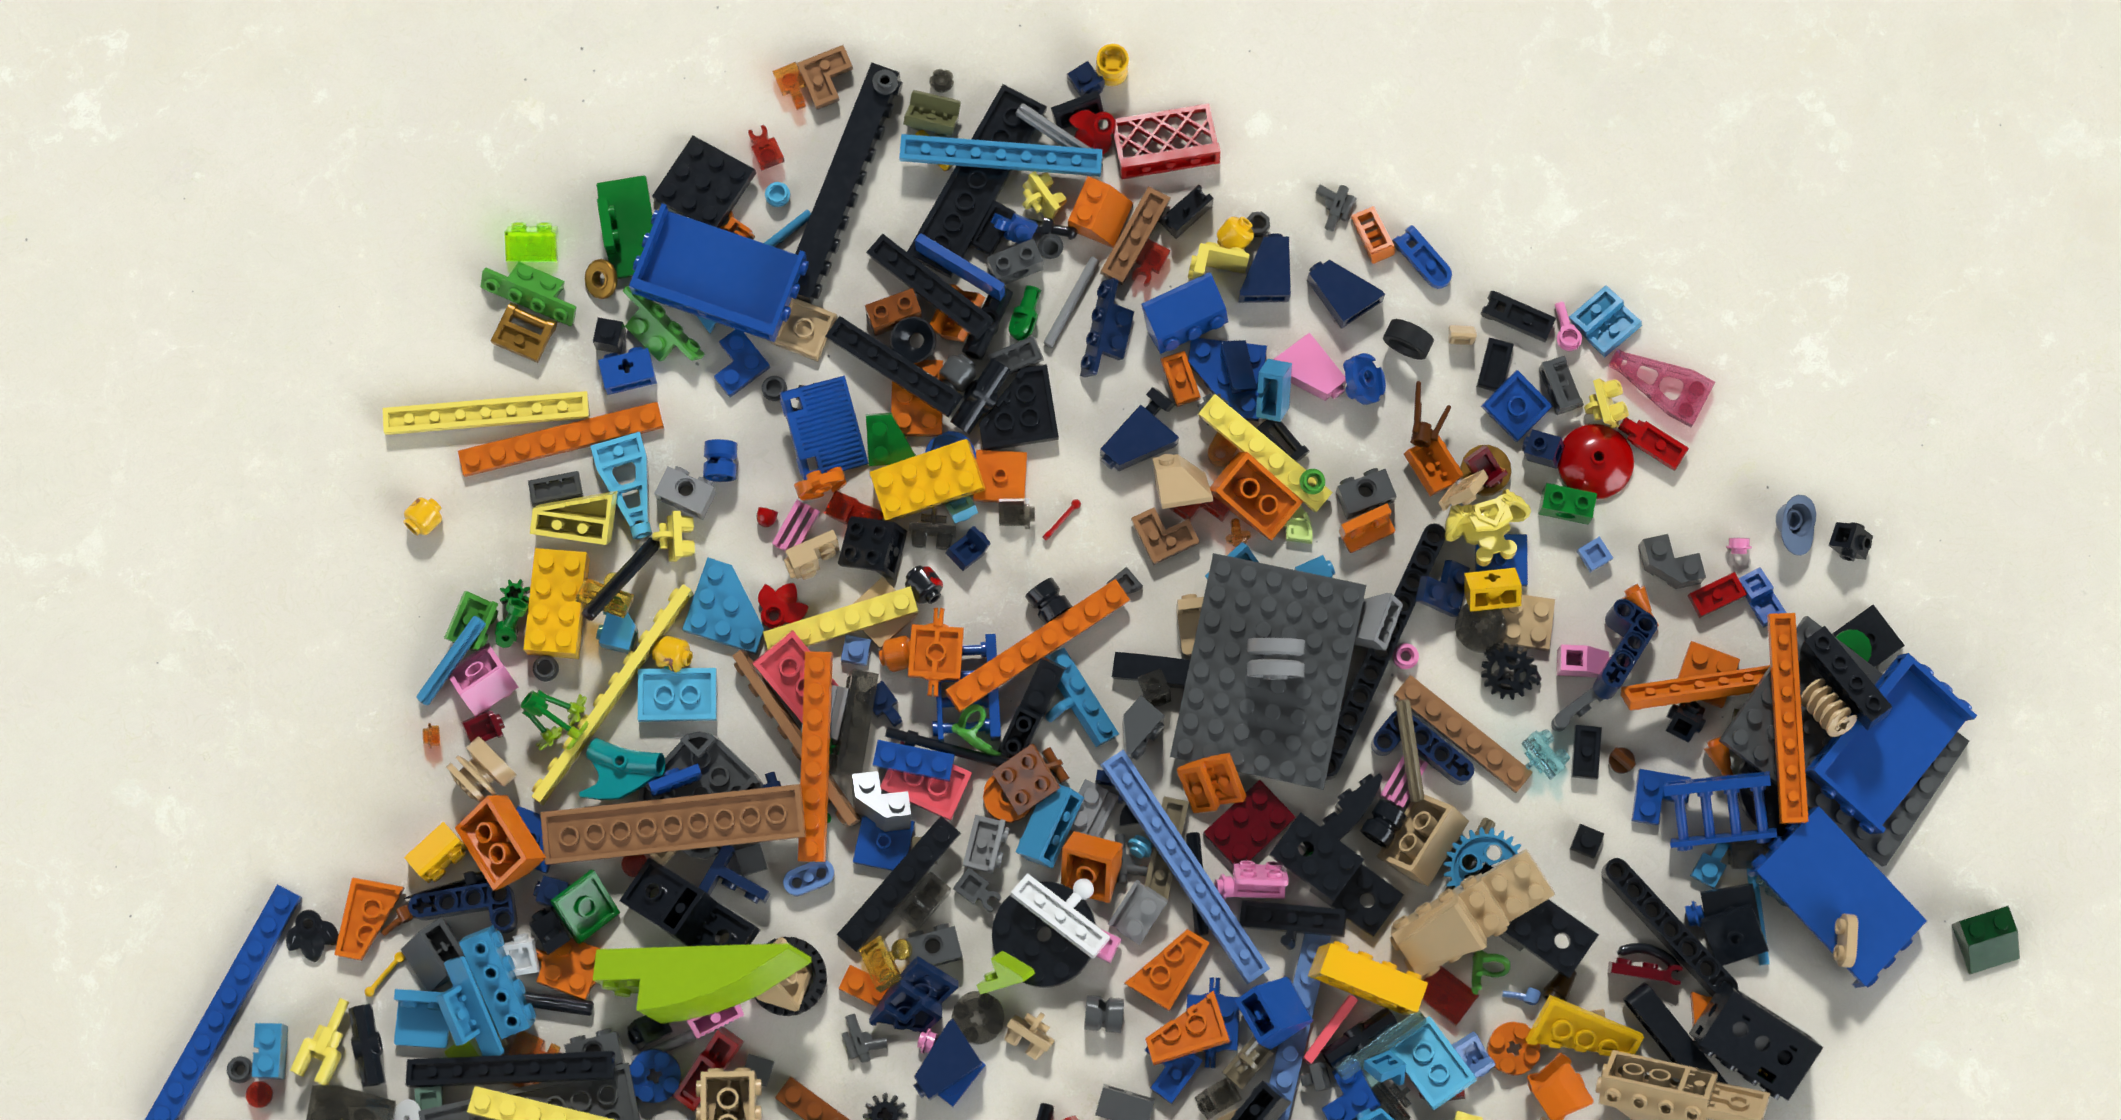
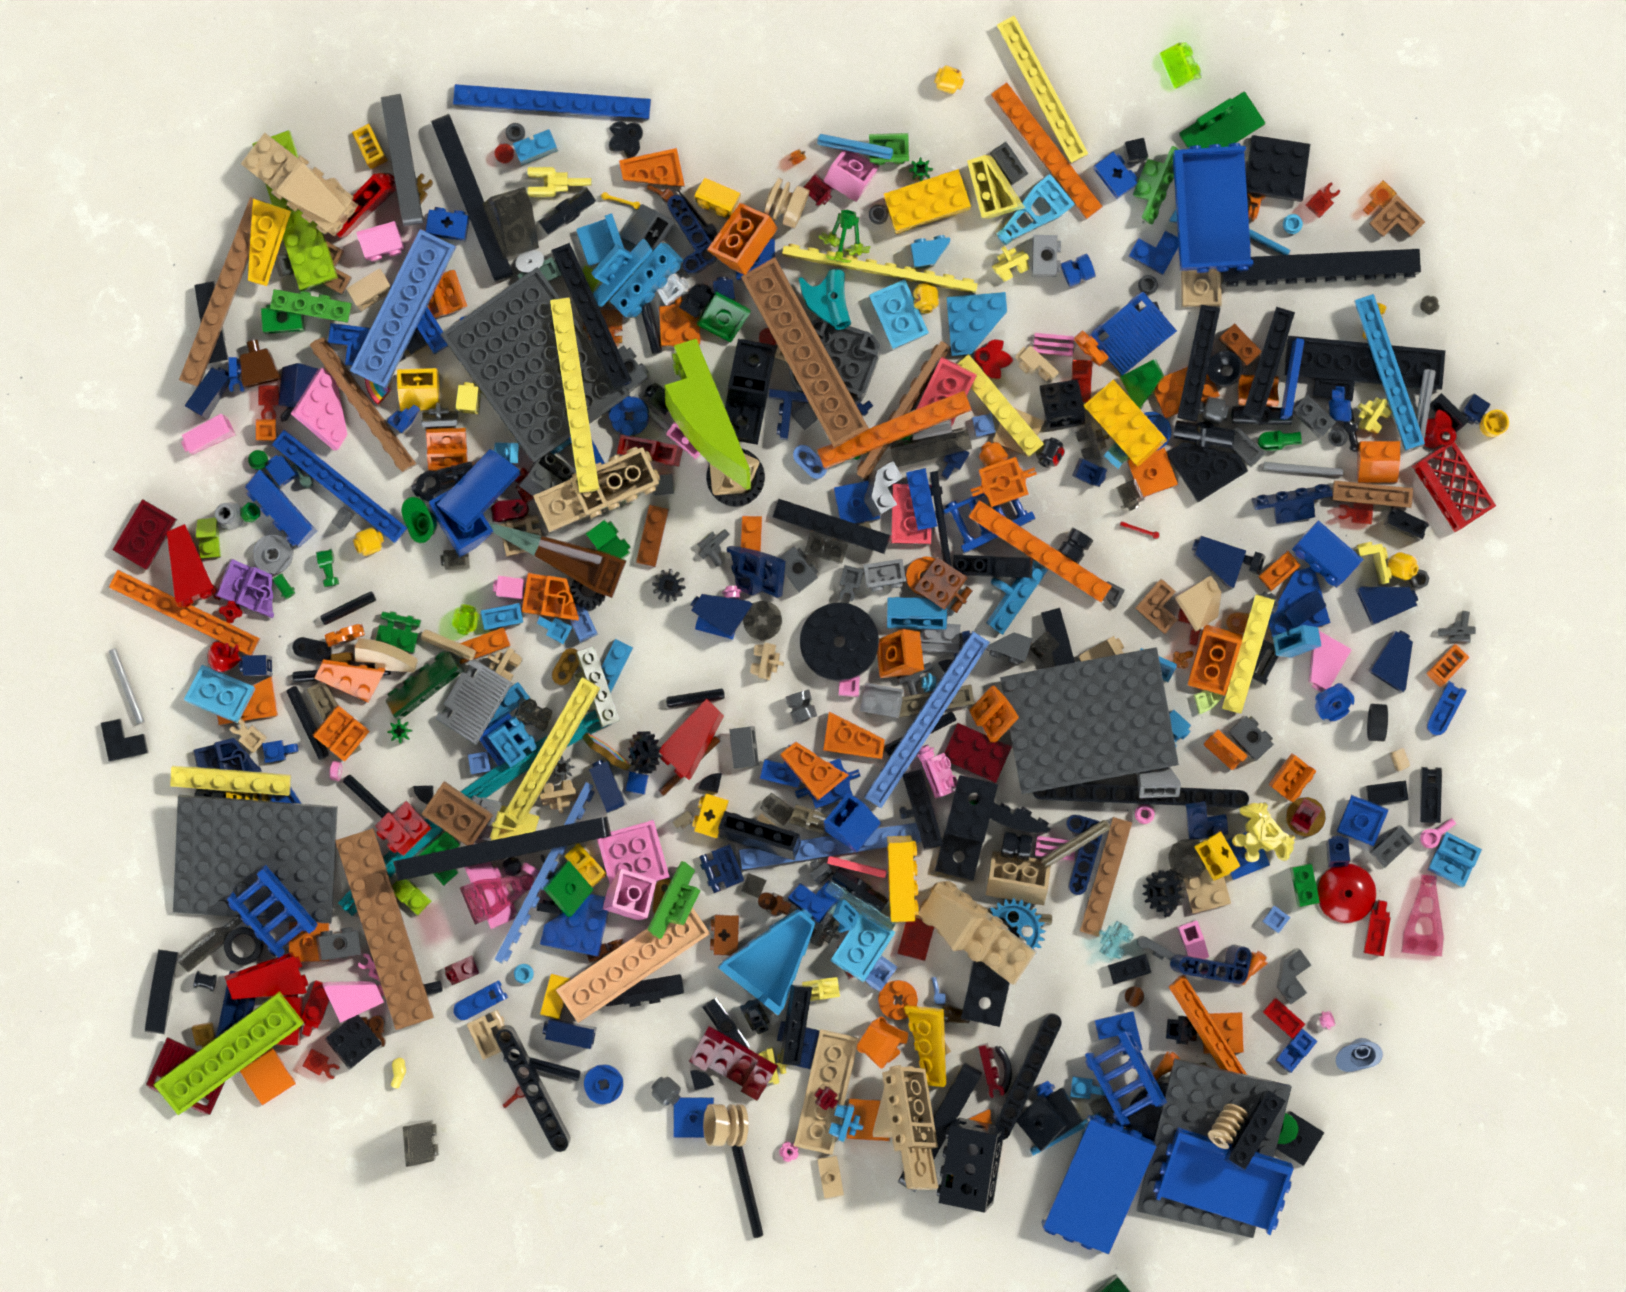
camera: 75 degrees right, 10 degrees up
(506, 630) = (893, 175): green leg -> none
(521, 340) = (1106, 89): pearl gold plate -> none
(532, 290) = (1146, 81): bright green bracket -> none
(592, 279) = (1172, 120): pearl gold piece -> none
(618, 605) = (945, 235): clear yellow plate -> none
(620, 579) = (961, 239): black axle -> none
(674, 779) = (836, 339): blue plate -> none
(766, 517) = (1051, 320): red hinge -> none
(881, 961) = (771, 537): clear yellow plate -> none
(885, 88) = (1401, 265): dark grey plate -> none
(932, 113) = (1400, 309): olive bracket -> none
(969, 735) = (955, 531): bright green piece -> none
(1006, 973) = (800, 627): lime slope -> none
(1061, 914) = (856, 647): white plate -> none
(1275, 658) = (1096, 722): light grey wheel -> none
(1317, 475) = (1241, 702): bright green plate -> none
(1422, 432) = (1311, 759): reddish brown plant -> none
(1465, 491) = (1279, 807): tan plate -> none
(1477, 970) = (942, 954): bright green piece -> none
(1586, 841) = (1065, 993): black plate -> none
(1604, 405) = (1389, 882): light yellow hips -> none
(1787, 718) = (1209, 1100): orange plate -> none
(1847, 935) = (1070, 1201): tan plate -> none
(1851, 541) = (1363, 1098): black brick -> none

